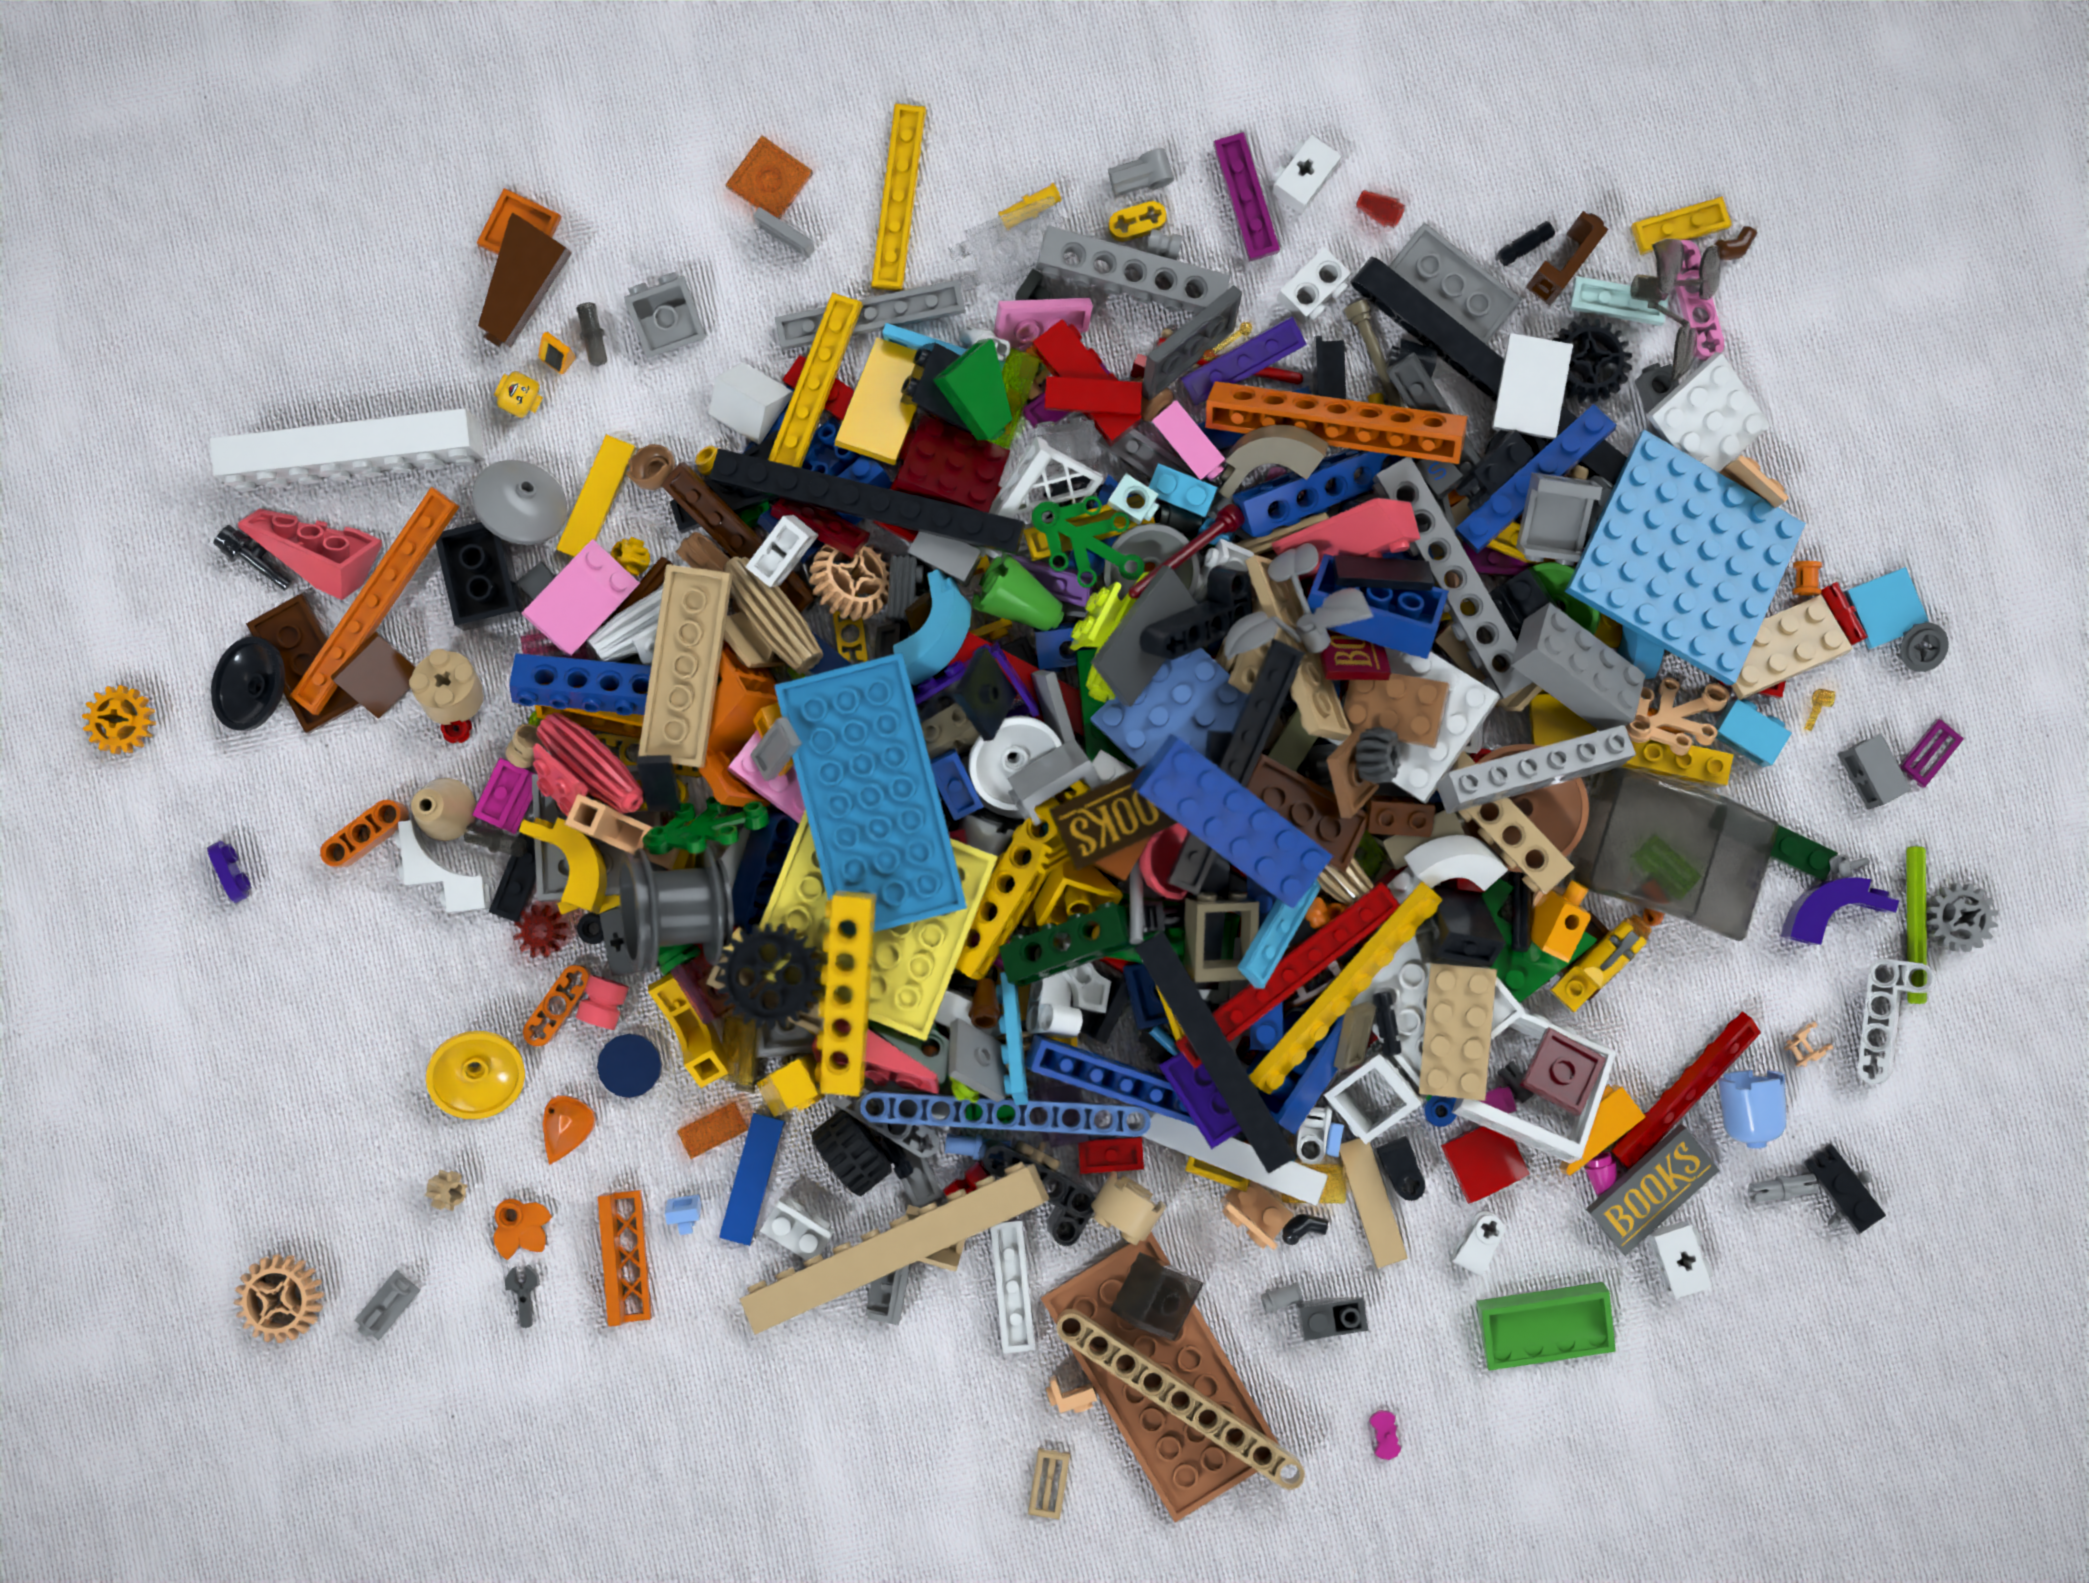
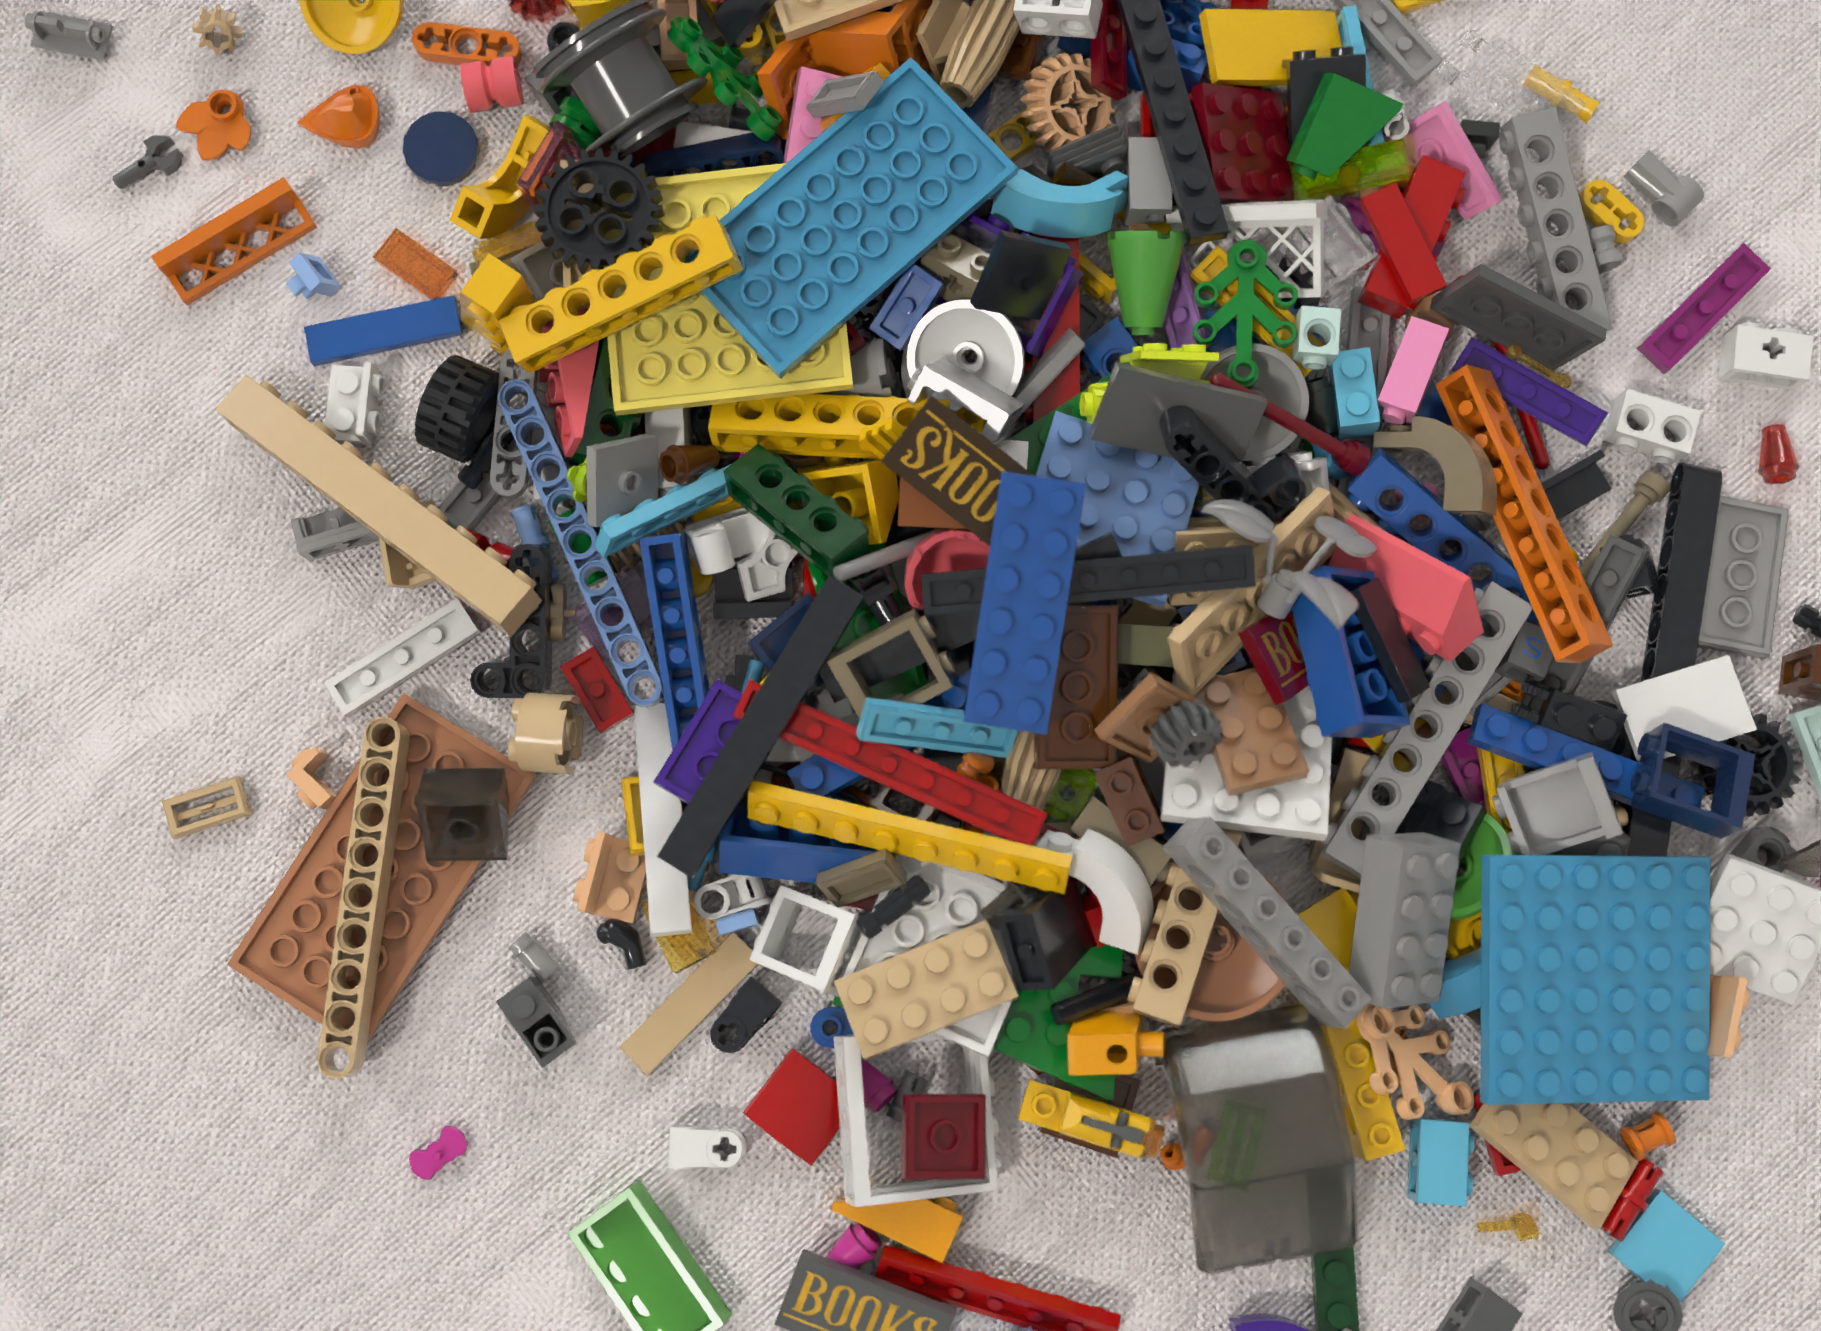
camera: 60 degrees right, 5 degrees down
(1605, 389) = (1730, 789): none -> dark blue window

